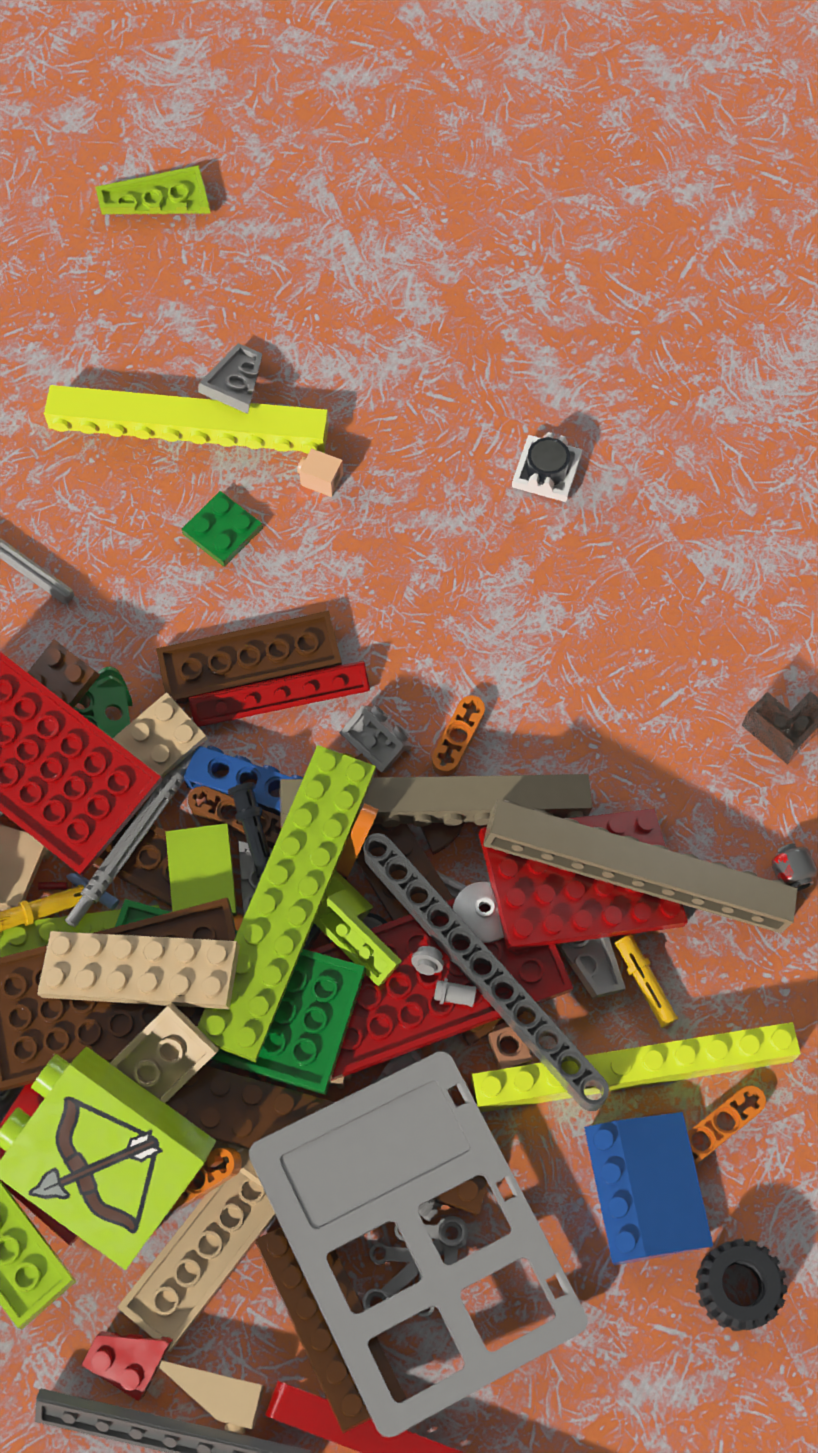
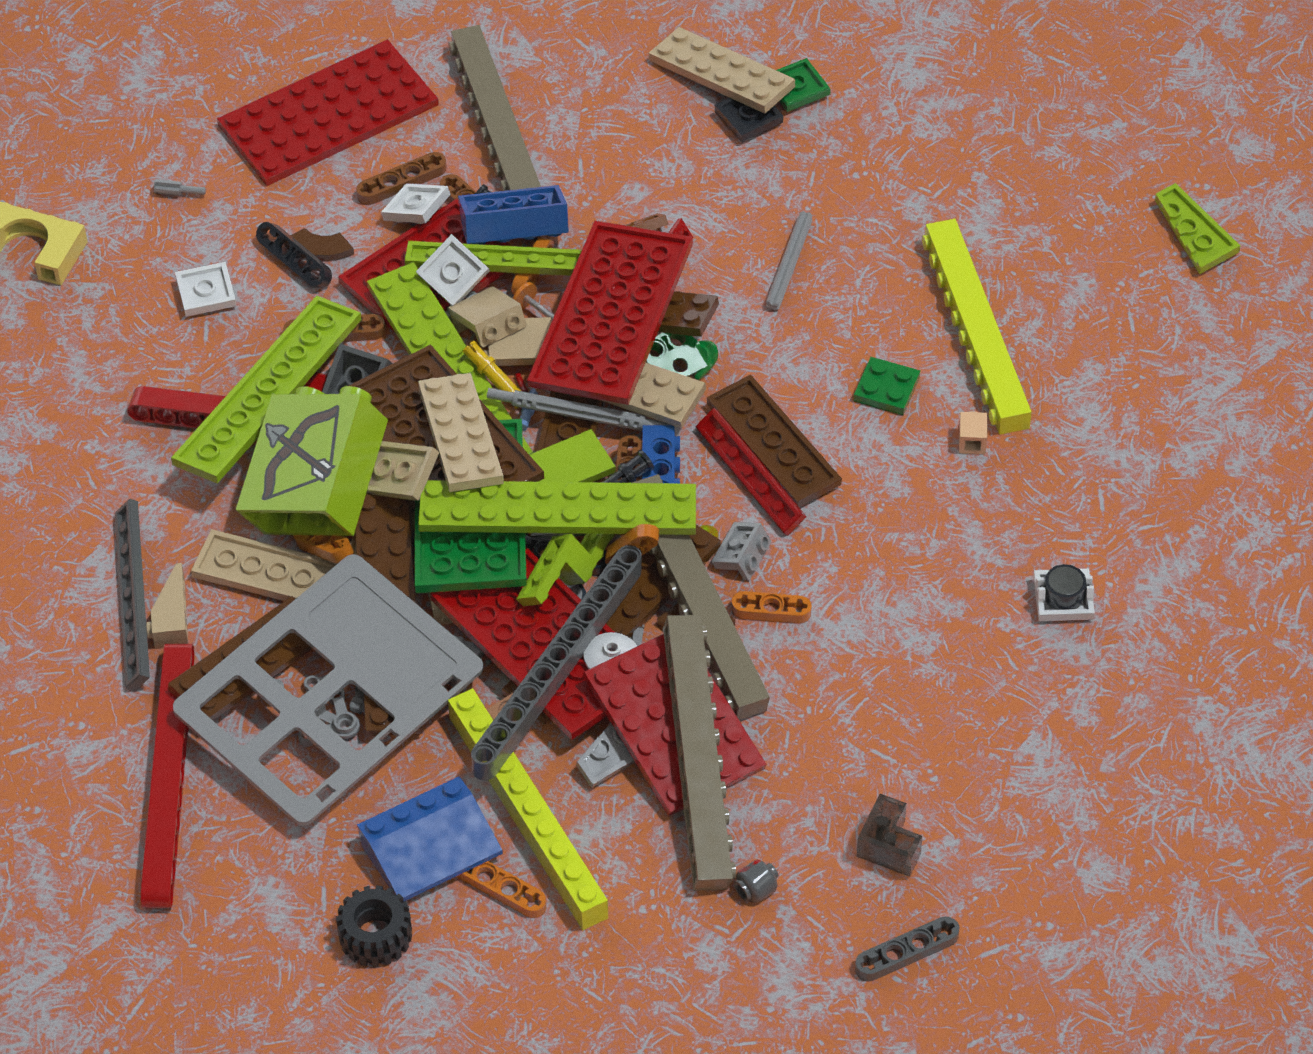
camera: 70 degrees right, 15 degrees down
(126, 1360) = (174, 547): wing -> none
(233, 378) = (1030, 339): light grey wing -> none
(428, 960) = (550, 623): light grey plate -> none
(454, 993) = (530, 645): light grey pin -> none
(627, 948) = (615, 792): yellow pin -> none

